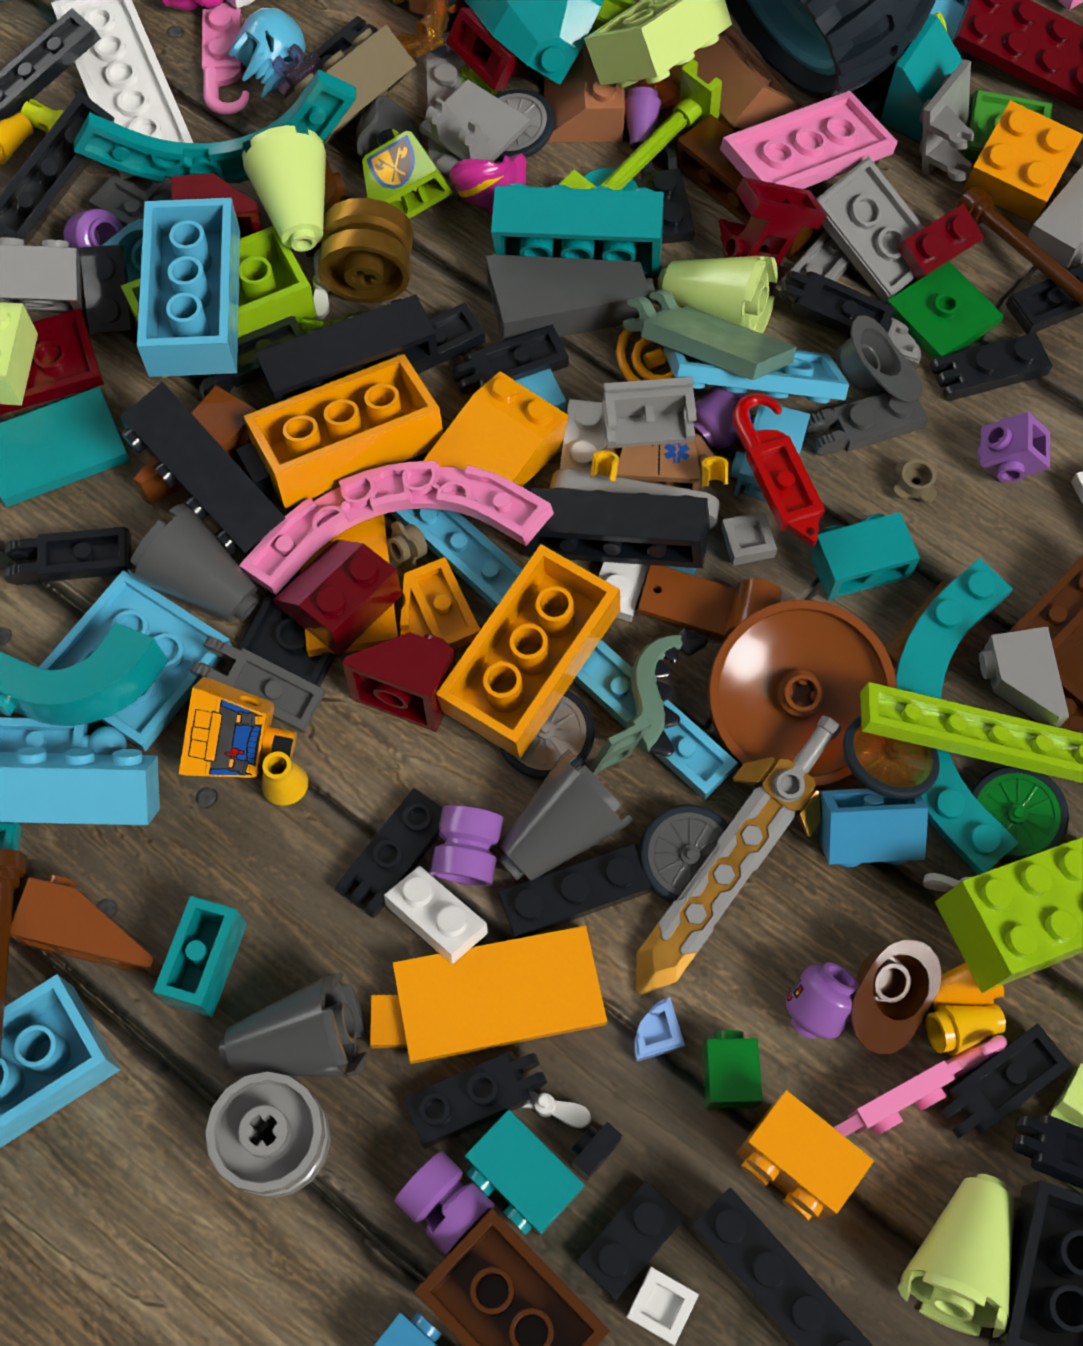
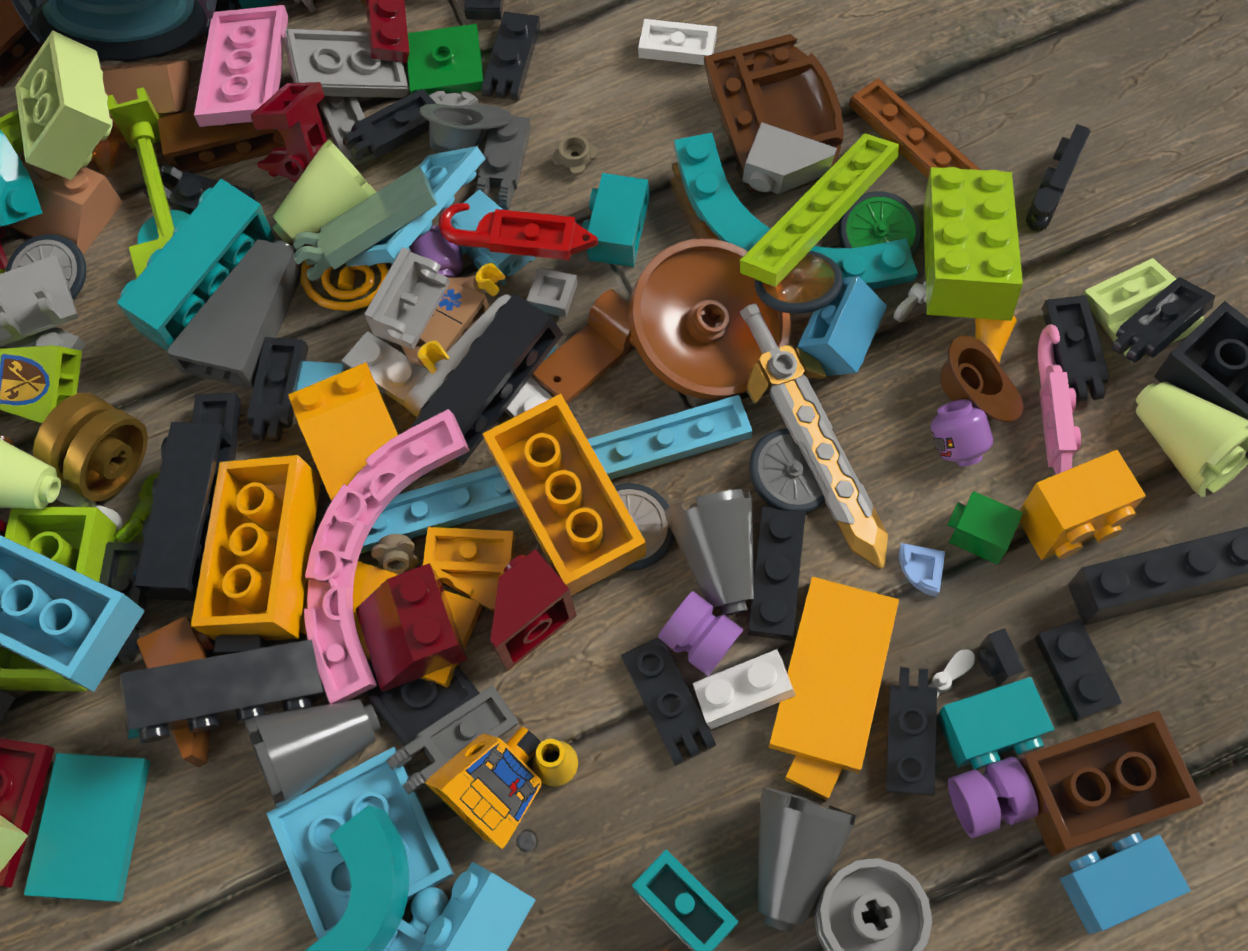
camera: 55 degrees left, 0 degrees up
(69, 555) = (217, 859): black hinge -> none
(477, 178) = (94, 317): dark pink hair -> none
(641, 114) = (117, 171): medium lavender cone -> none
(649, 694) = (649, 429): sand green piece -> none
(662, 1306) = (1140, 670): white plate -> none
(963, 1026) = (1022, 353): yellow cone -> none
(1015, 447) = (594, 73): medium lavender brick -> none

